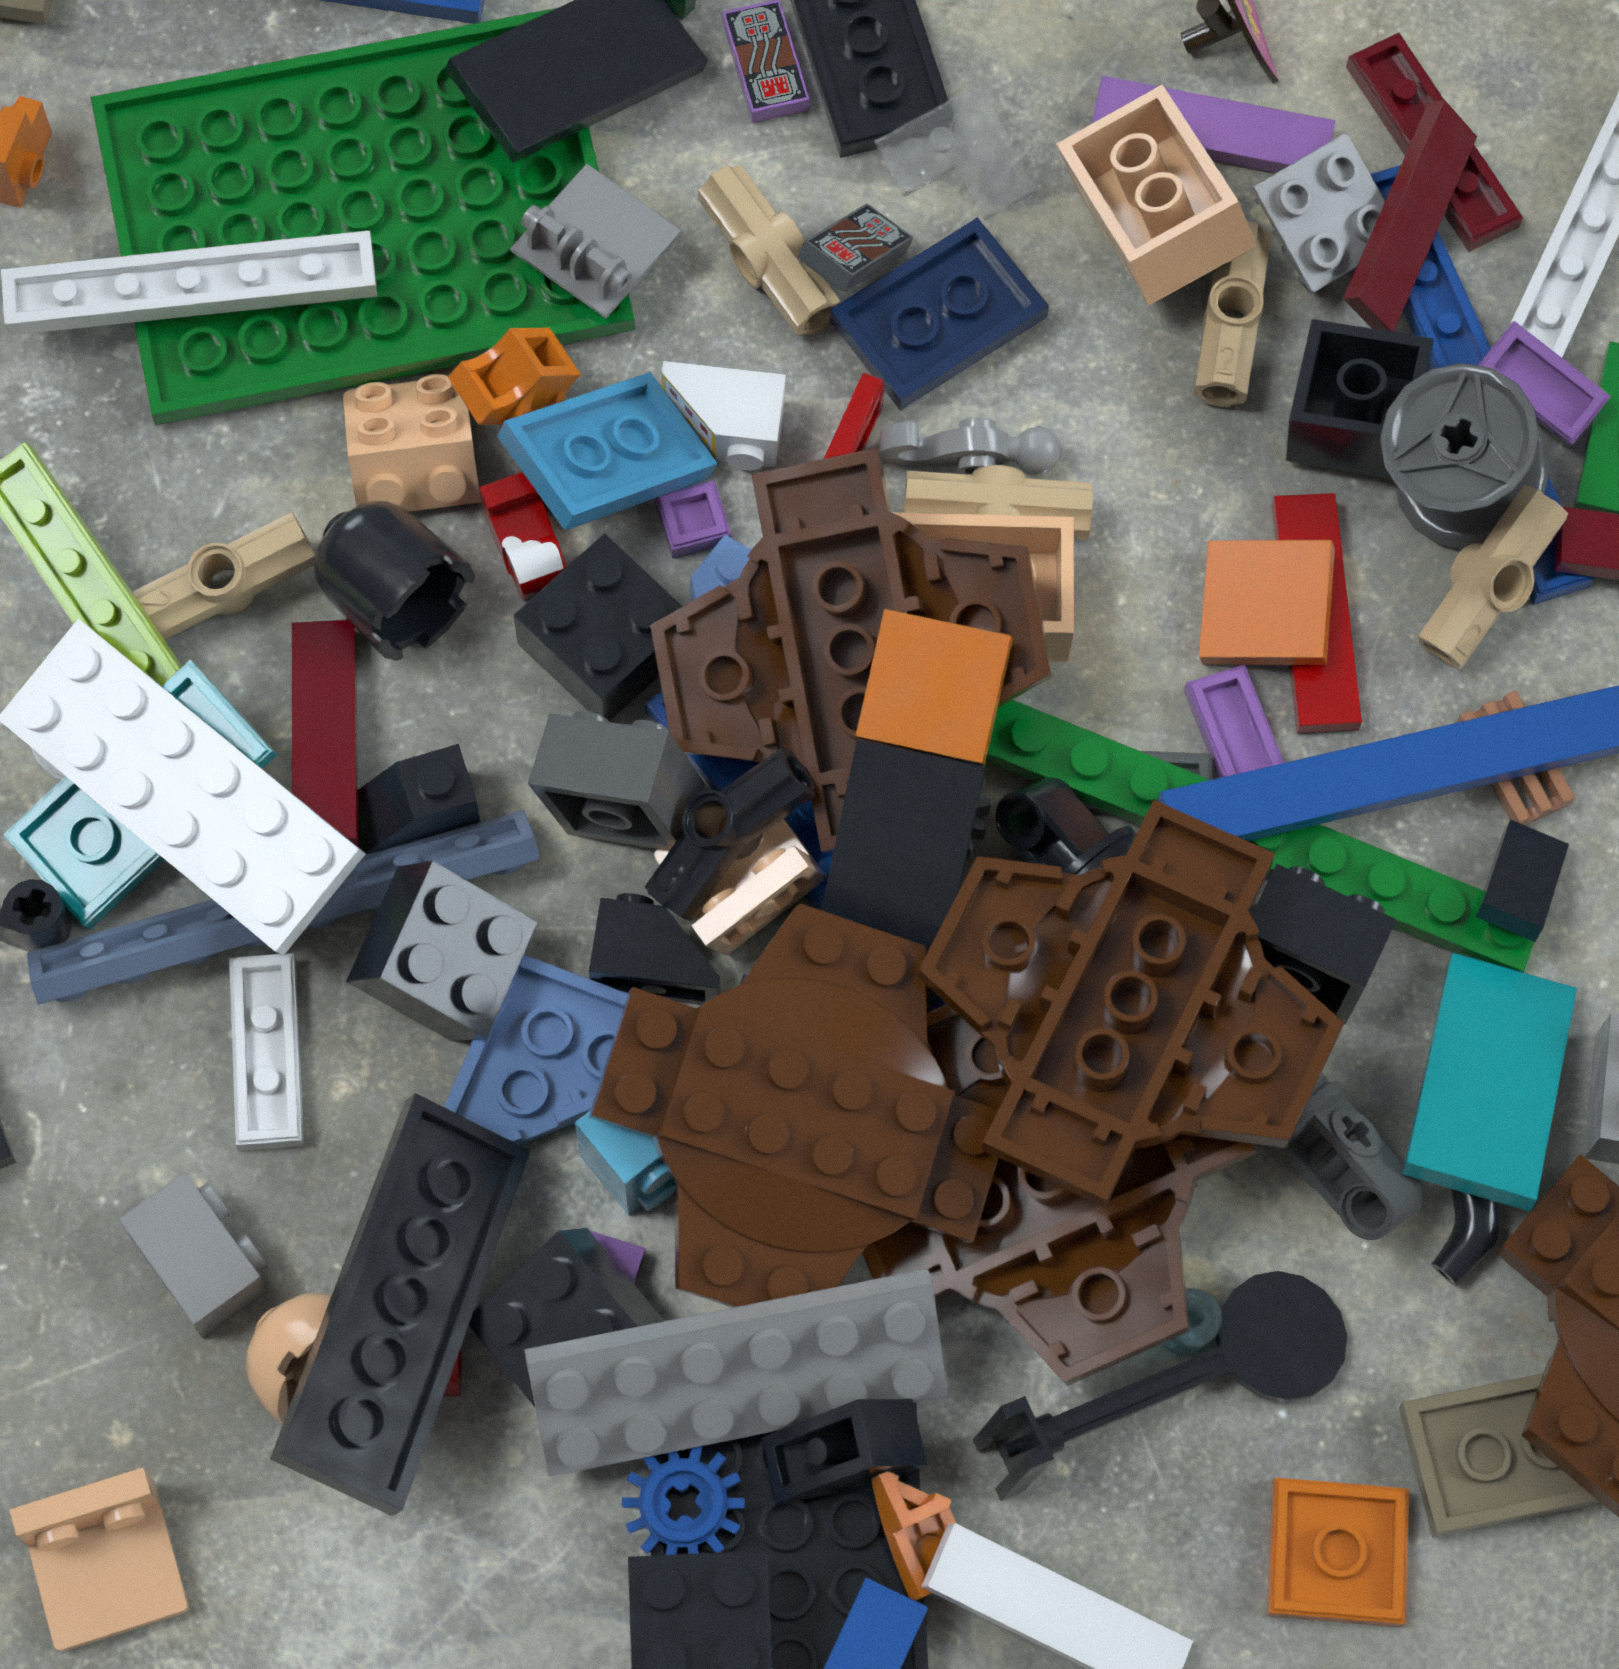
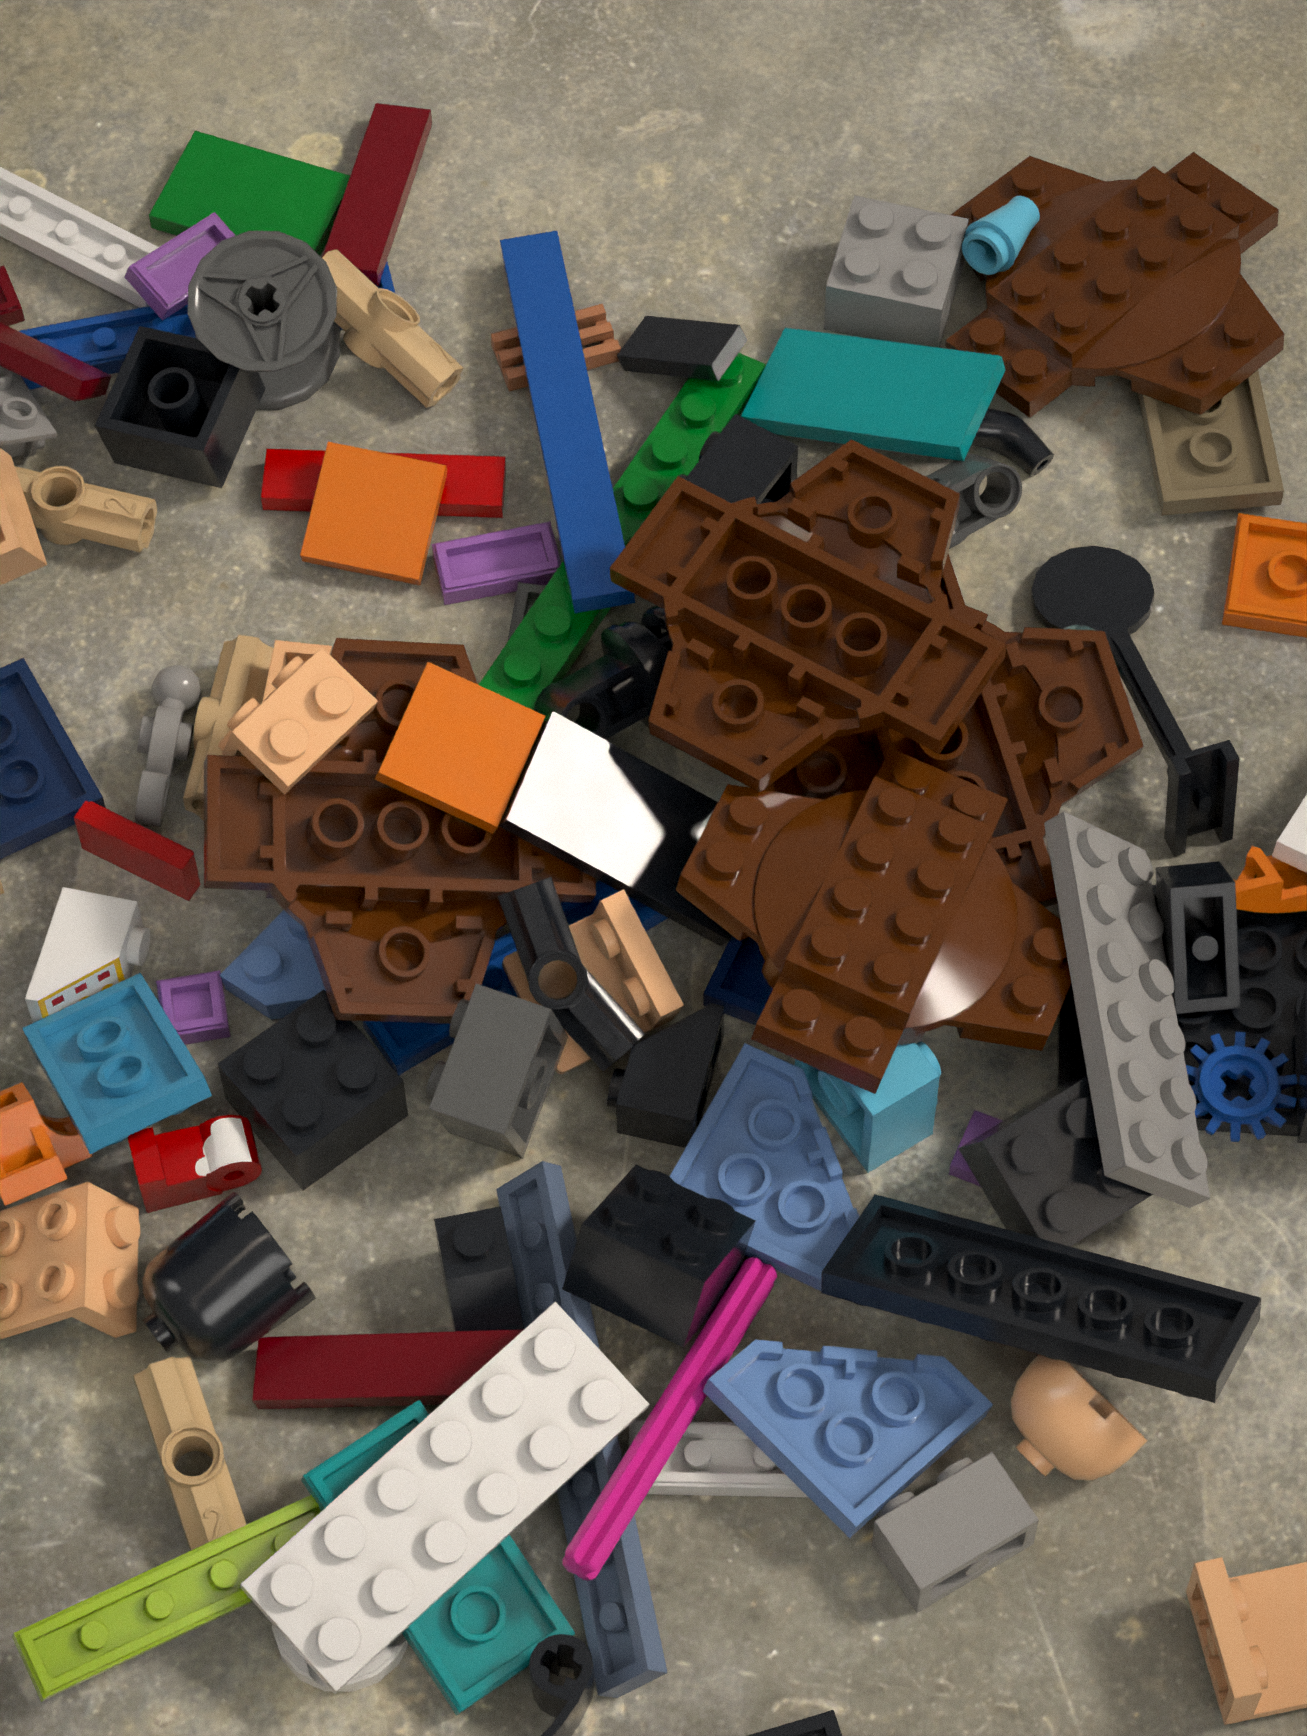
camera: 80 degrees left, 10 degrees down
(283, 981) = (668, 1420): none -> dark pink axle
(292, 1143) = (847, 1421): none -> medium blue plate
(926, 528) = (299, 720): none -> light nougat bracket

